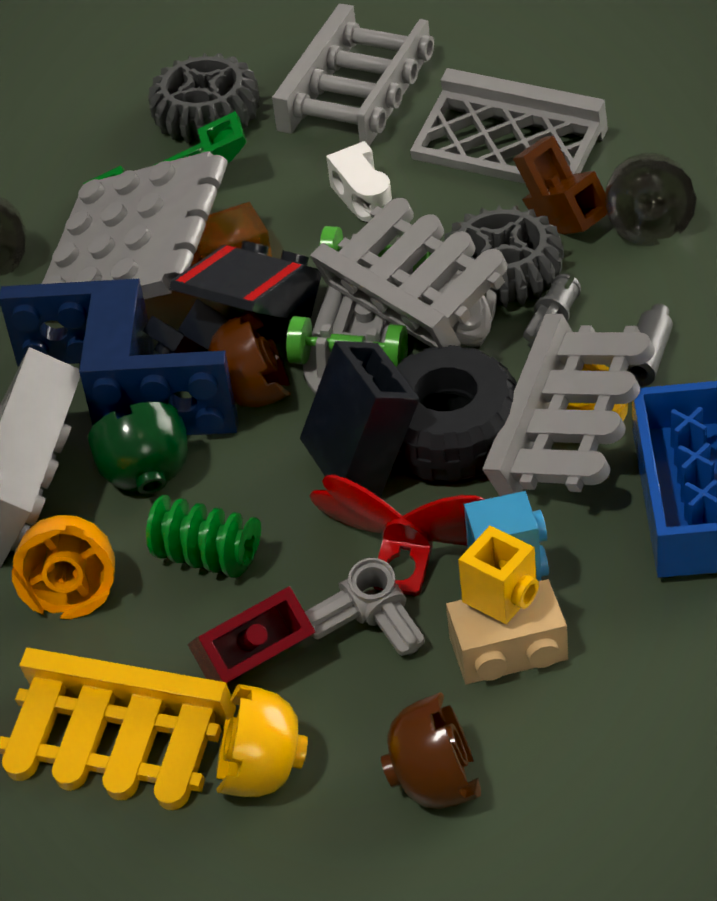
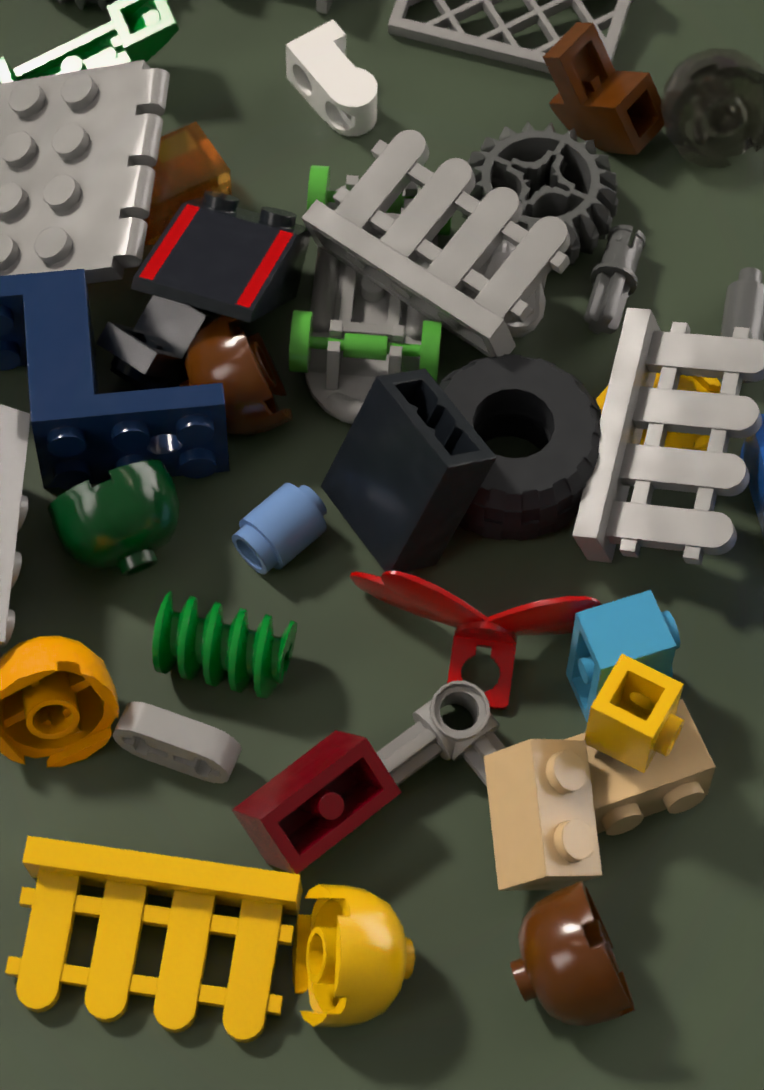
camera: 15 degrees left, 15 degrees up
(157, 600) = (177, 742): none -> light grey beam
(263, 464) = (280, 527): none -> medium blue brick
(422, 648) = (542, 815): none -> tan brick

